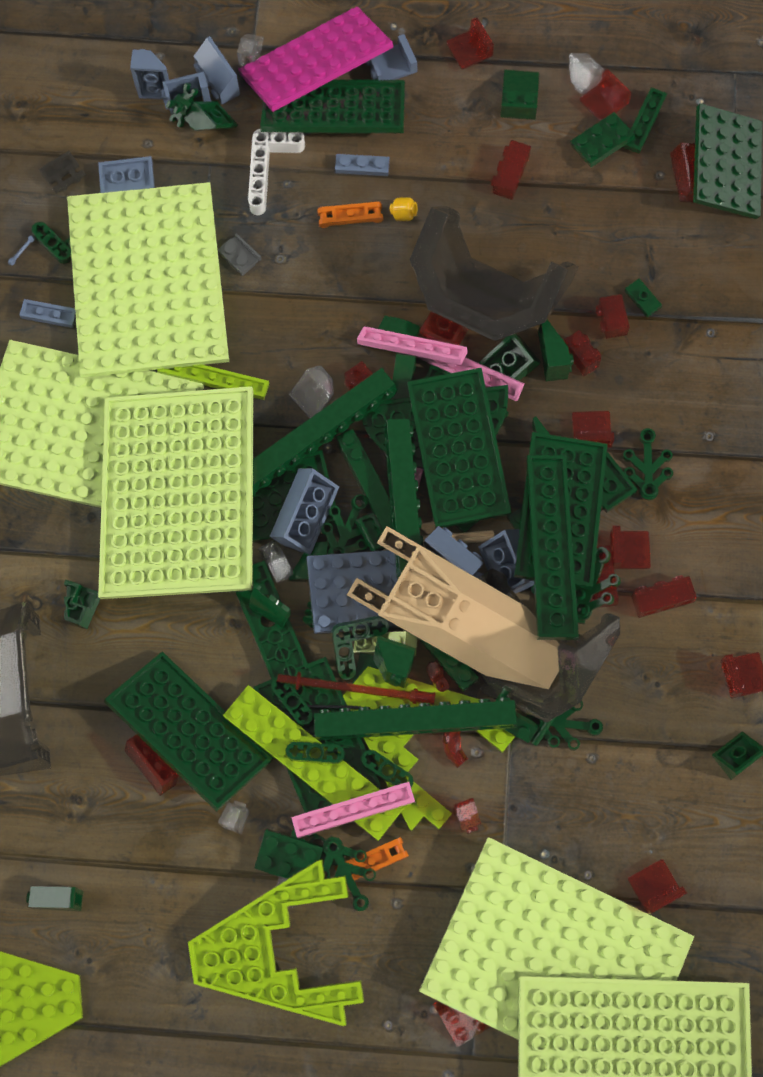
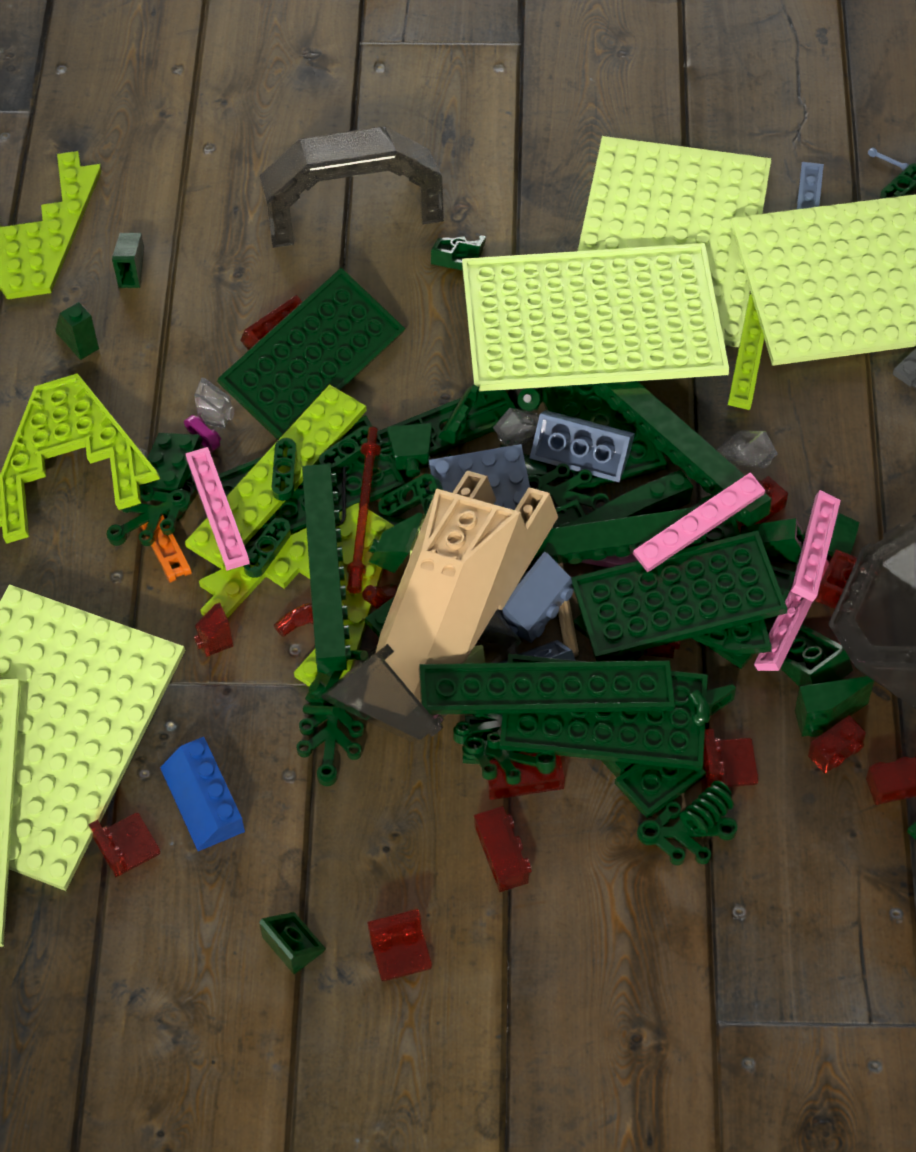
camera: 85 degrees right, 15 degrees down
(137, 945) = (77, 330): none -> dark green slope
(252, 833) = (197, 426): none -> magenta plate
(257, 550) = (529, 399): none -> dark green piece
(296, 648) = (410, 447): none -> dark green torso
(402, 422) = (698, 522): none -> bright pink plate
(571, 437) = (703, 708): none -> dark green arm
(614, 825) = (202, 795): none -> blue slope
(630, 549) = (564, 805): clear red bracket -> none
(636, 445) = (708, 808): none -> dark green piece

